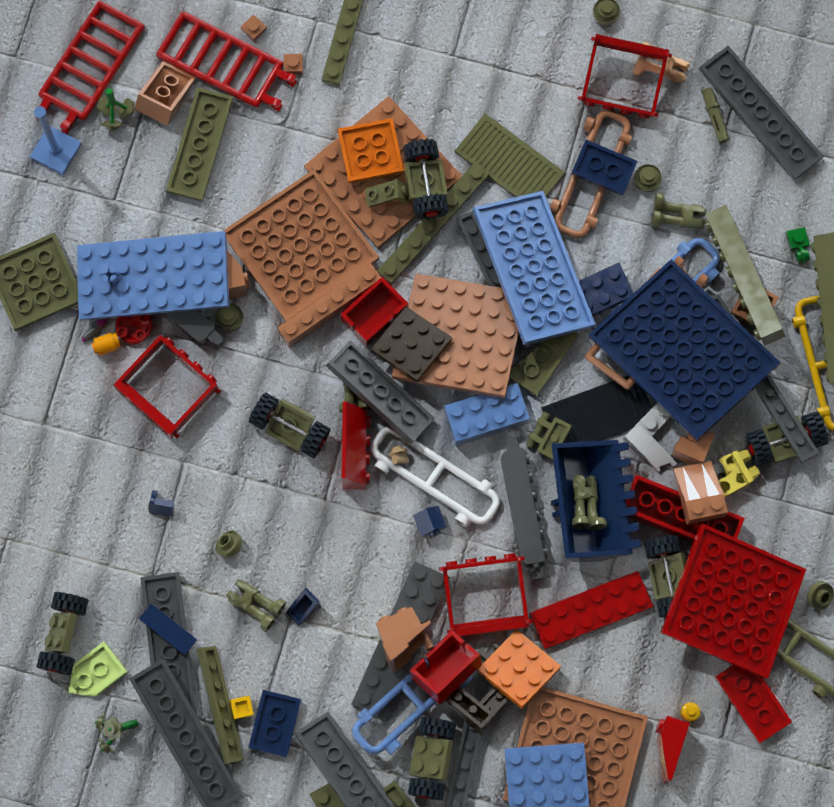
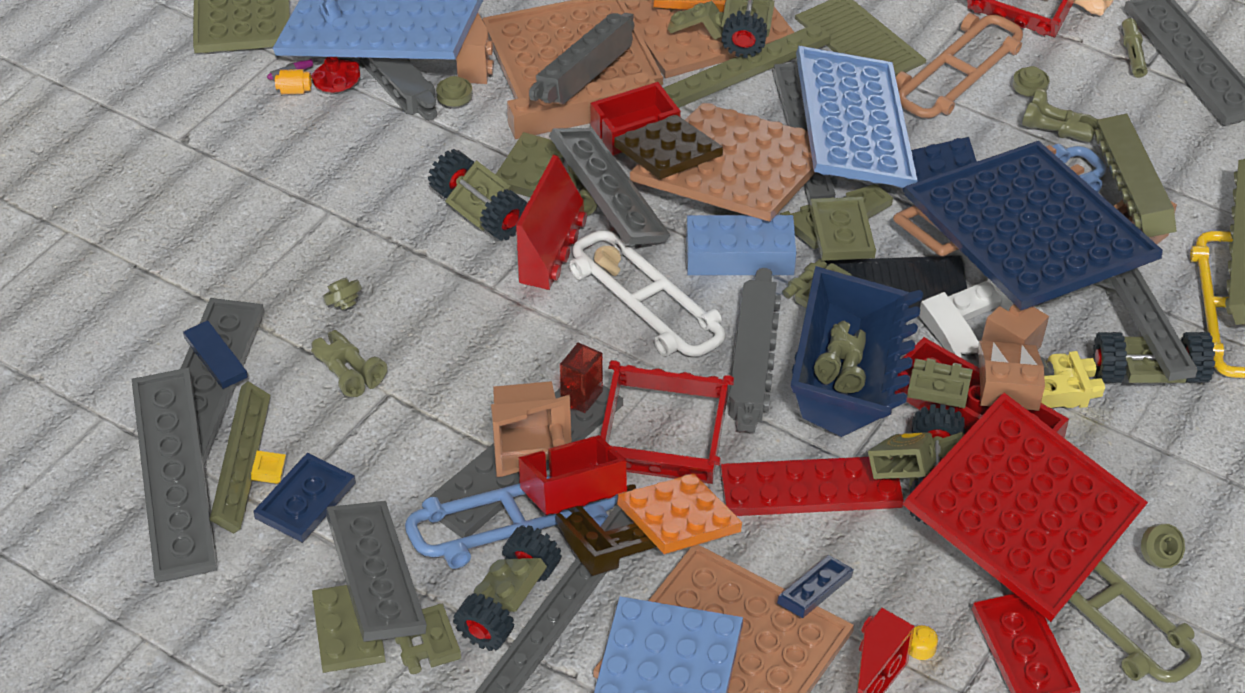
camera: 20 degrees right, 30 degrees down
(61, 633) = (50, 347): plate -> none
(95, 672) = (96, 383): yellowish green tile -> none
(112, 730) = (74, 433): olive plant -> none
(146, 407) = (357, 158): red window -> none
(160, 506) = (276, 238): dark blue tile -> none
(303, 607) = (410, 378): dark blue slope -> none
(310, 375) = (527, 163): none -> olive plate
(323, 274) = (584, 60): none -> dark grey hinge
(423, 584) = (582, 376): none -> clear red brick
(430, 521) = (619, 330): dark blue brick -> none
(554, 382) = (842, 228): none -> olive plate
(604, 167) = (977, 54): dark blue plate -> none
(617, 694) = (815, 586): none -> dark blue tile
(649, 582) = (911, 454): none -> olive torso
(657, 522) = (940, 382): none -> olive plate
(799, 240) = (1218, 180): green plate -> none

